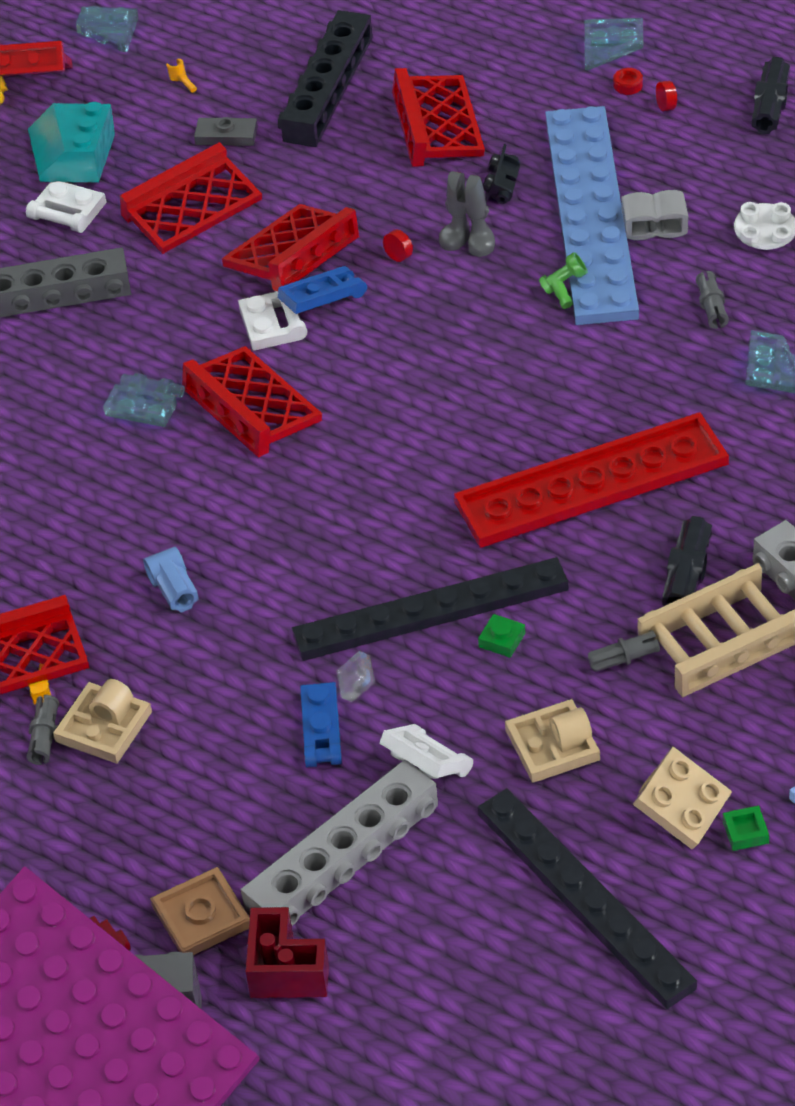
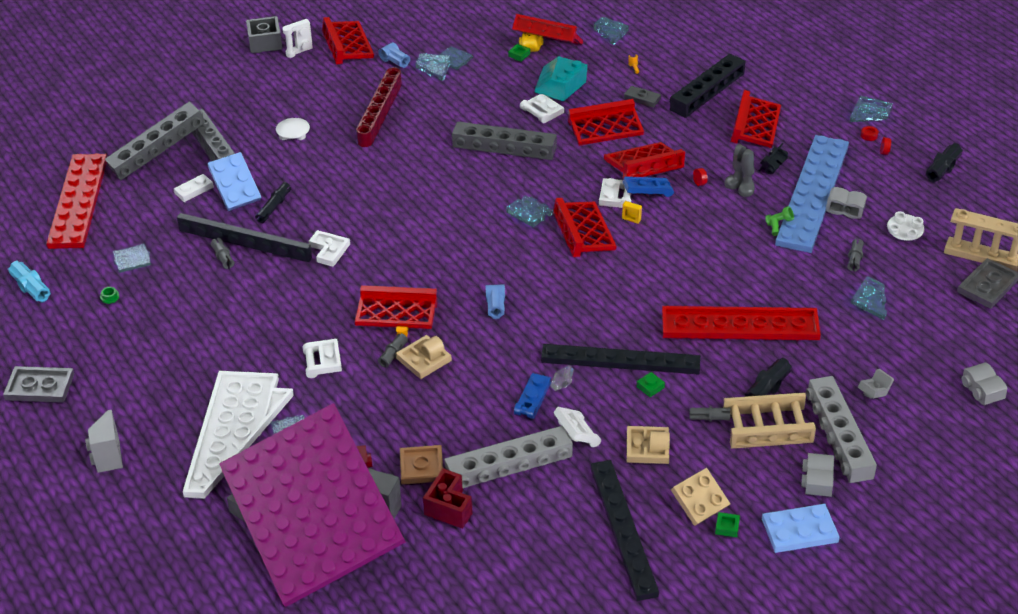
camera: 20 degrees right, 5 degrees down
(318, 345) = (631, 212): none -> yellow plate

